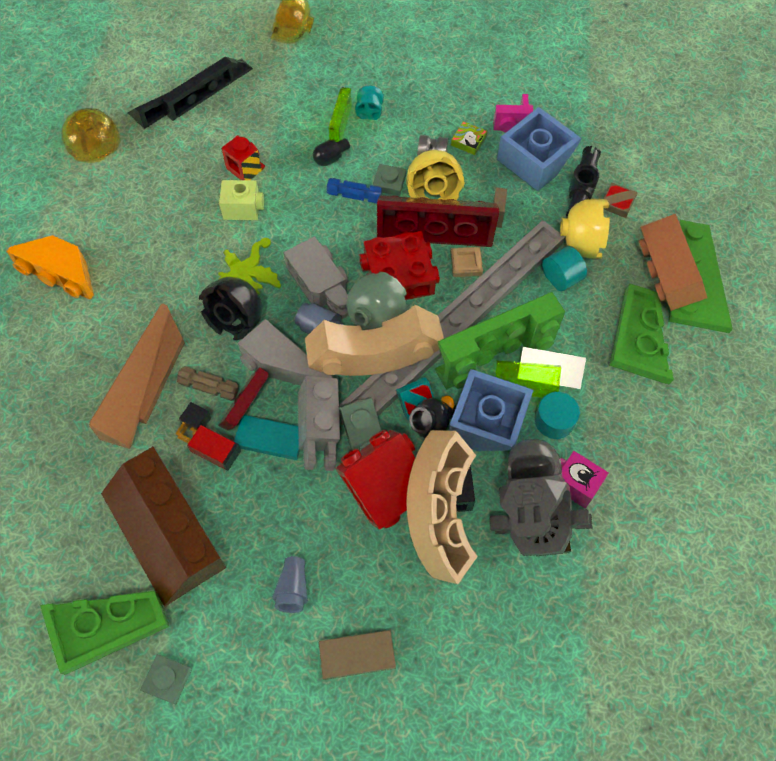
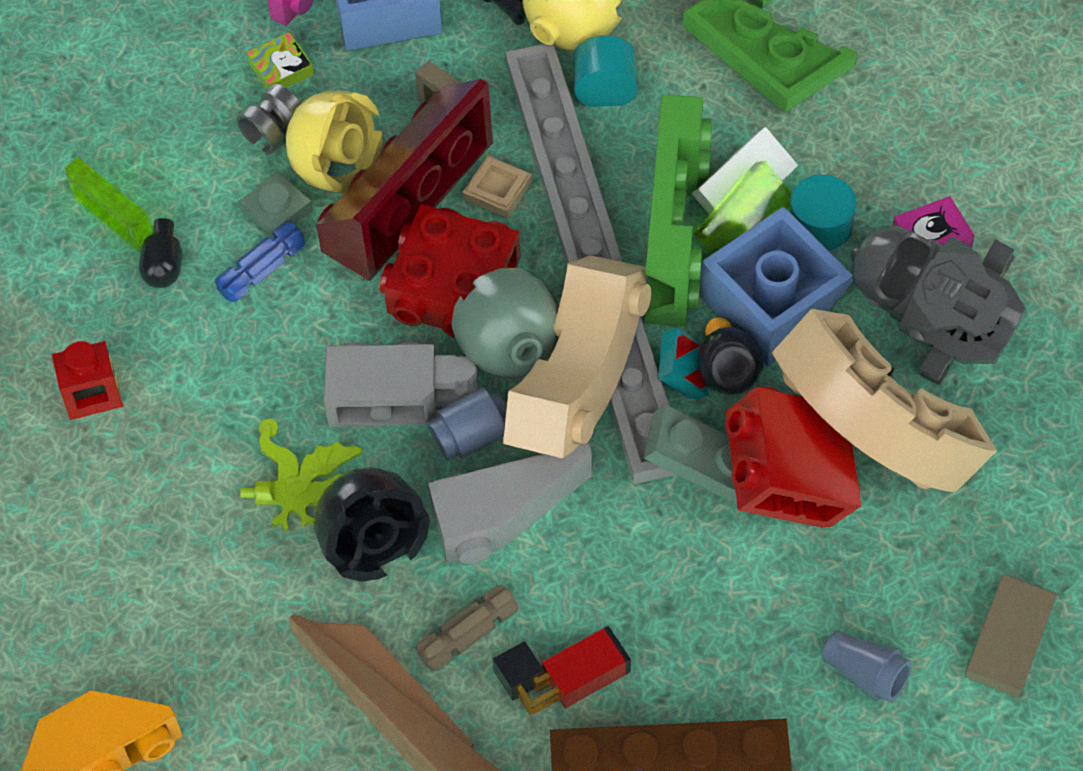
camera: 55 degrees left, 5 degrees down
(240, 200) = (164, 421): yellowish green brick -> none
(244, 399) = (535, 587): dark red tile -> none
(268, 437) = (614, 586): teal tile -> none
(318, 420) = (644, 501): light grey hinge -> none
(369, 103) = (112, 152): teal wheel -> none

